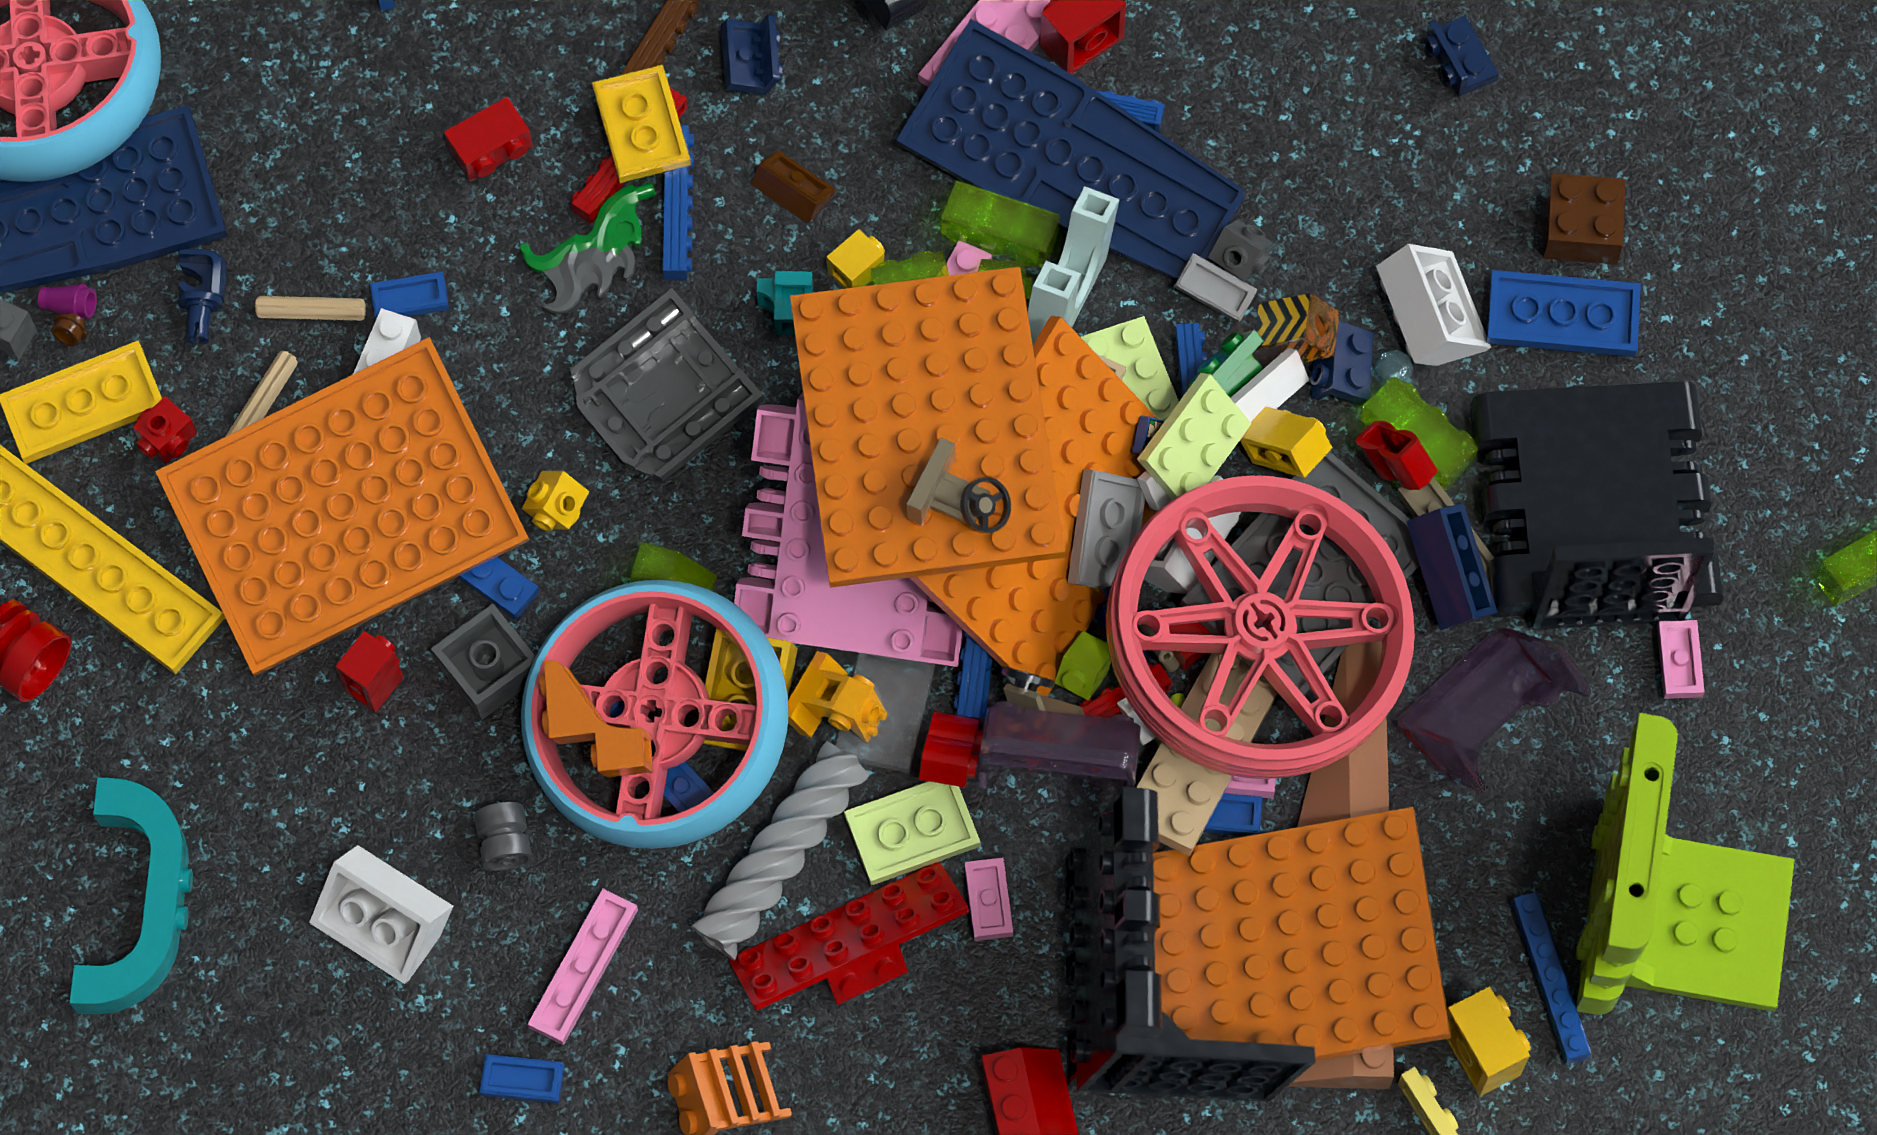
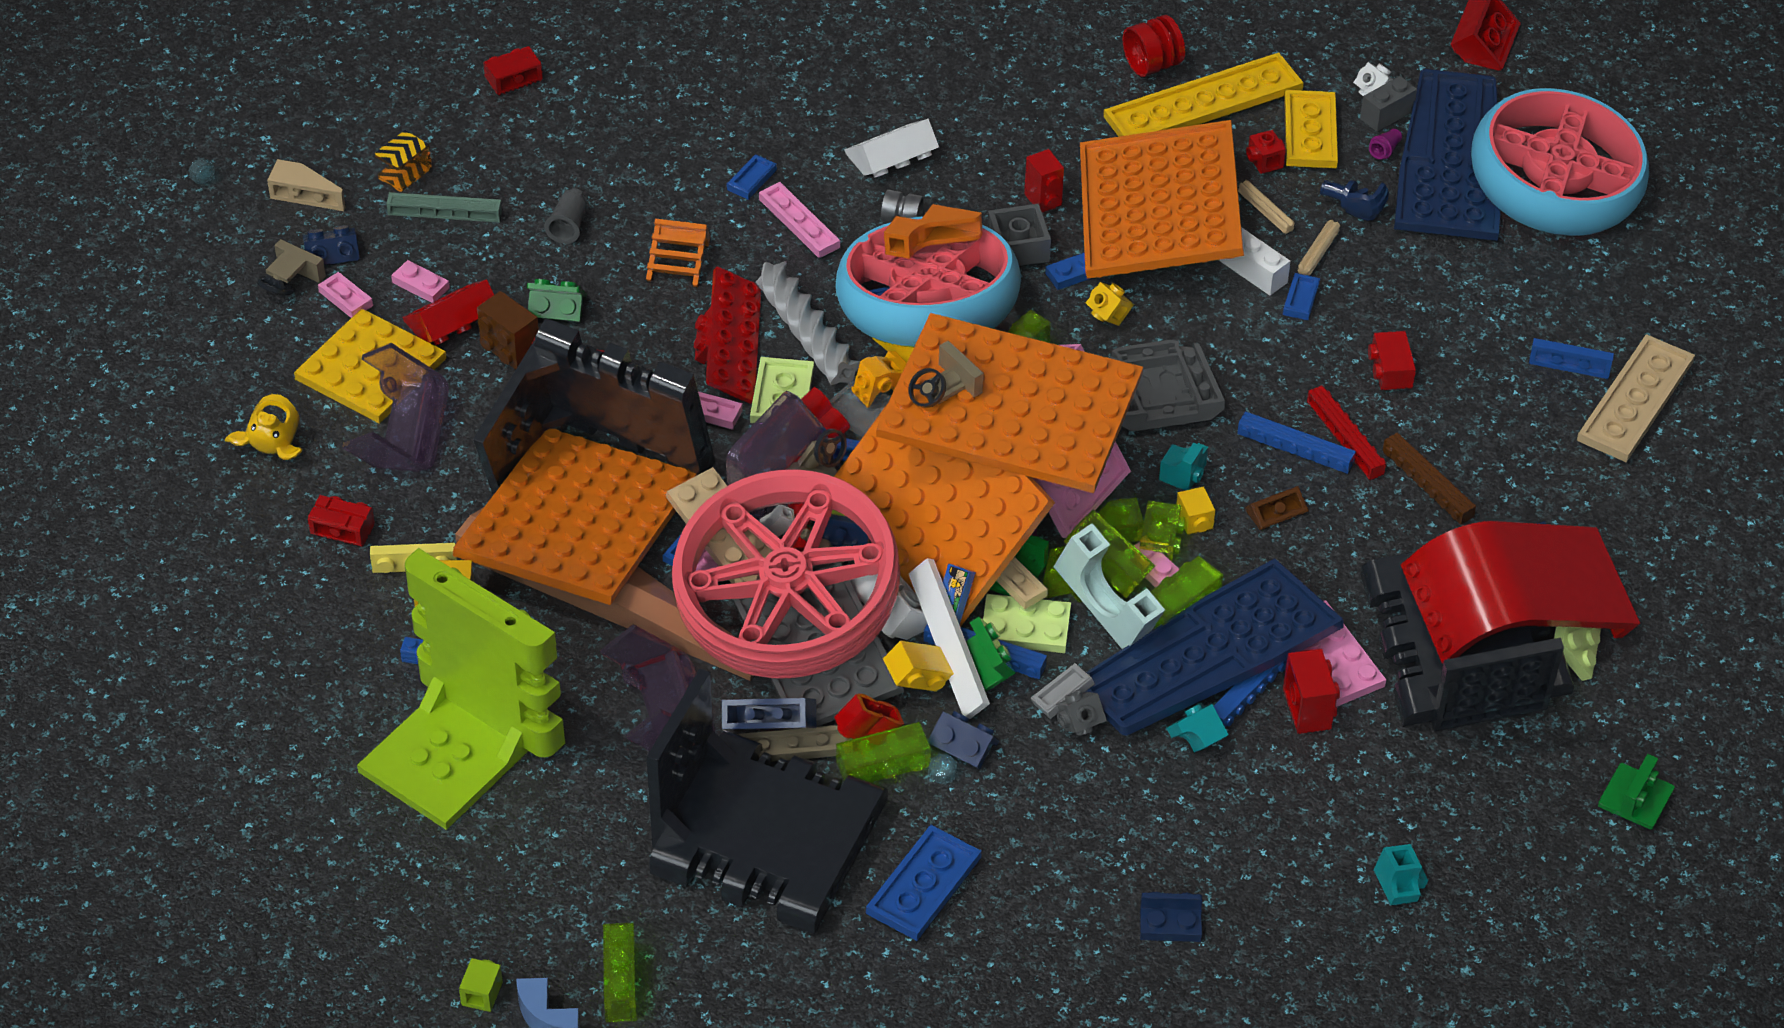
camera: 115 degrees right, 20 degrees down
(69, 329) = (1363, 136): reddish brown plate -> none
(145, 968) = (970, 68): teal arch -> none
(596, 256) = (1279, 391): piece -> none
(641, 123) = (1361, 435): yellow tile -> none
(751, 55) = (1388, 515): dark blue bracket -> none
(1105, 526) = (916, 534): light grey tile -> none
(1194, 438) = (941, 597): yellowish green plate -> none
(1195, 122) = (1199, 727): none -> teal brick
(1299, 324) = (1002, 697): piece -> none
(1432, 305) = (975, 807): white slope -> none
(1584, 218) = (989, 924): reddish brown brick -> none
(1680, 659) = (623, 827): bright pink plate -> none

